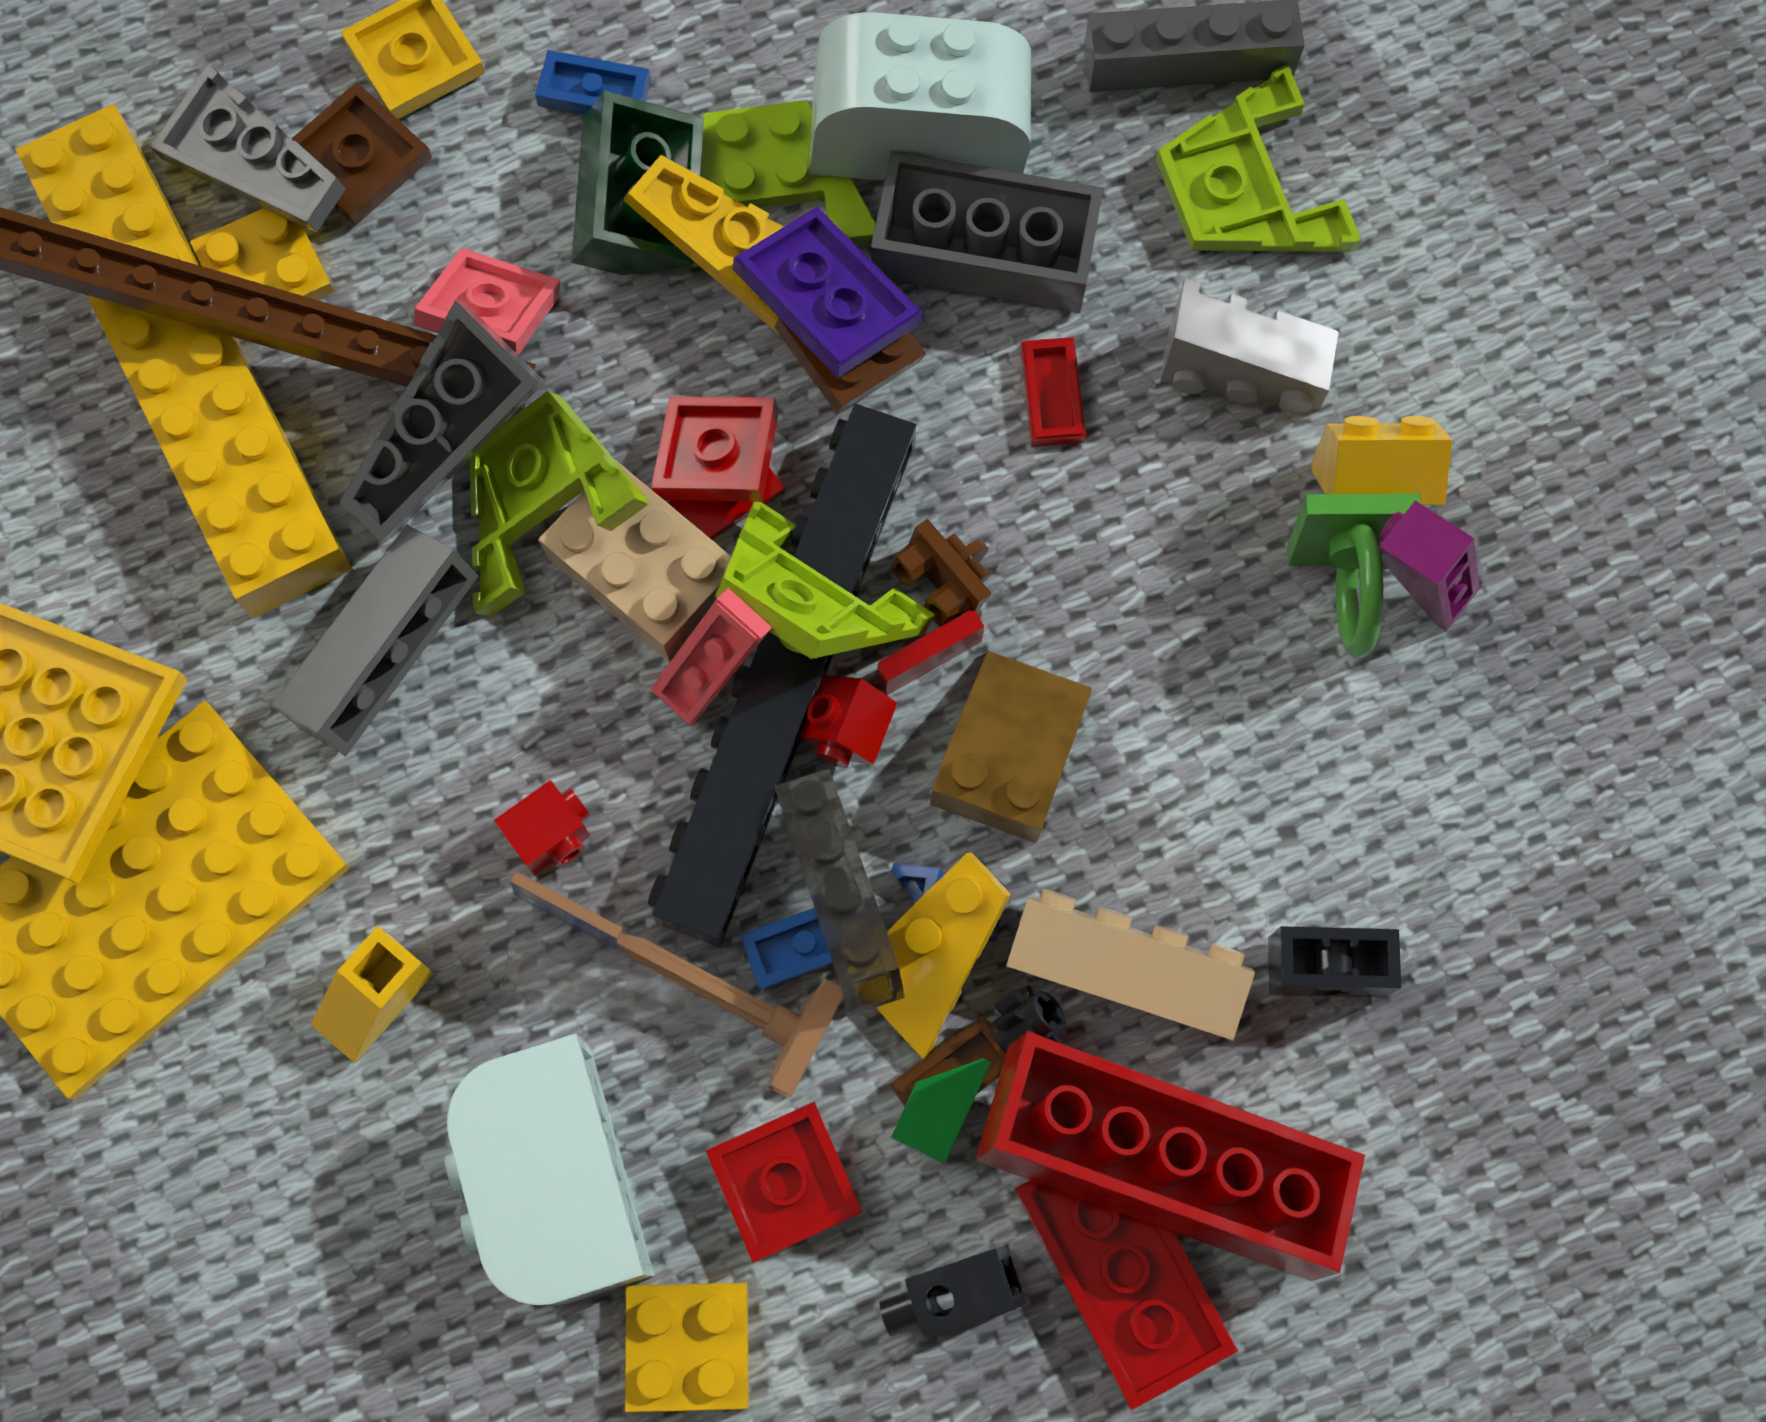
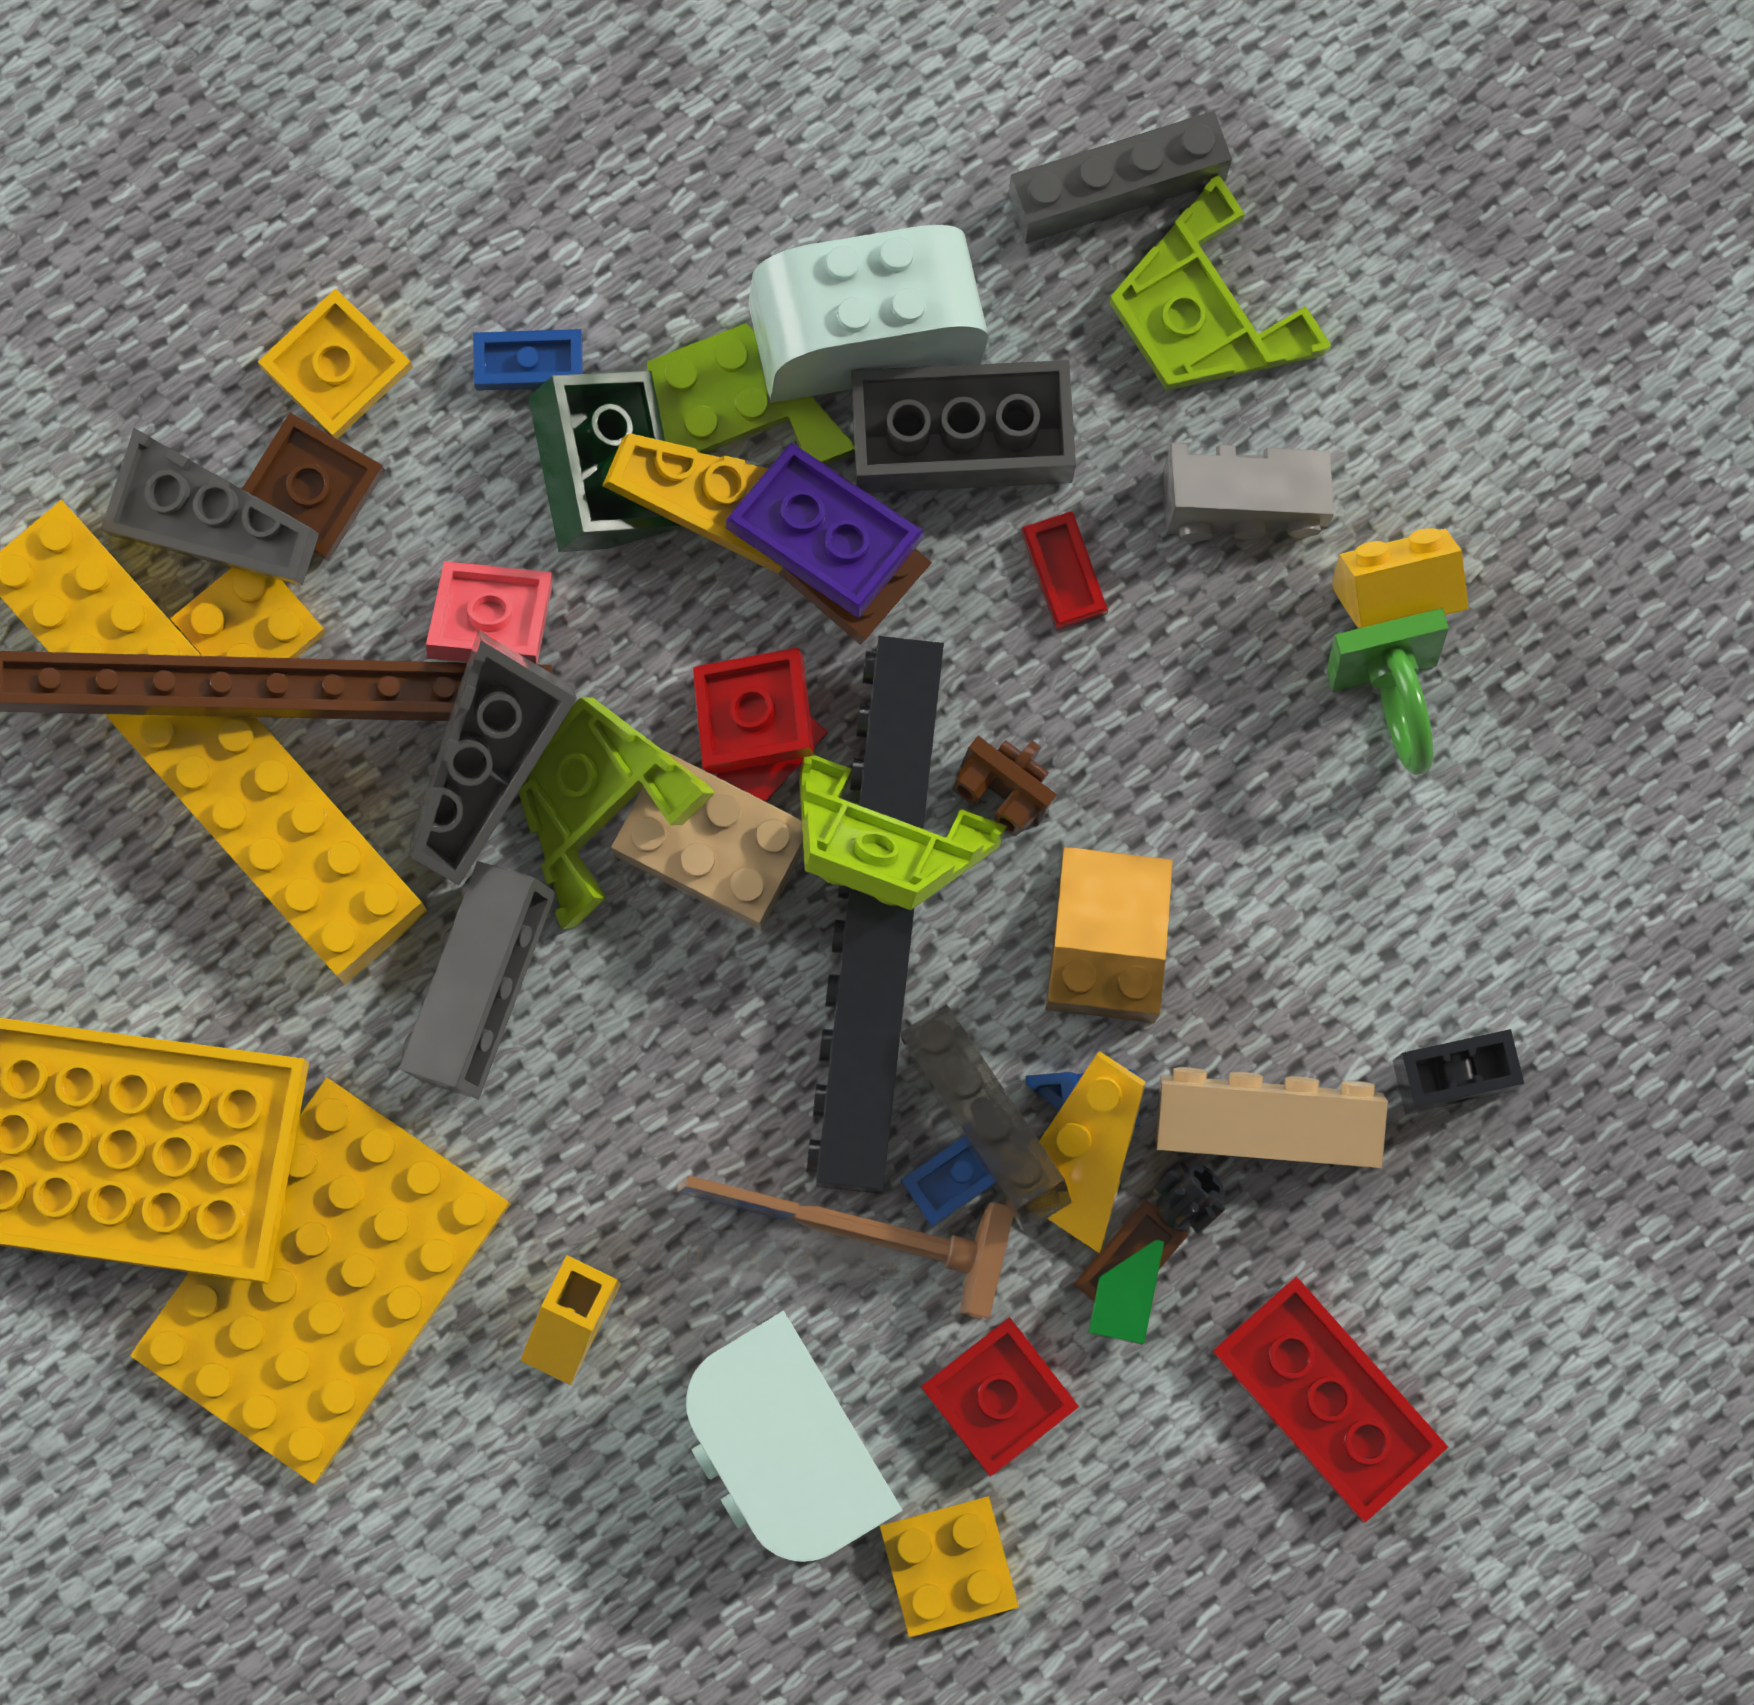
camera: 15 degrees left, 5 degrees up
(546, 827) = (690, 1122): red brick -> none
(710, 657) = (809, 926): coral tile -> none
(847, 720) = (950, 951): red brick -> none
(929, 652) = (1010, 864): red tile -> none
(980, 1286) = (1205, 1446): black torso -> none
(1172, 1157) = (1349, 1289): red brick -> none
(1431, 562) = (1466, 671): magenta slope -> none

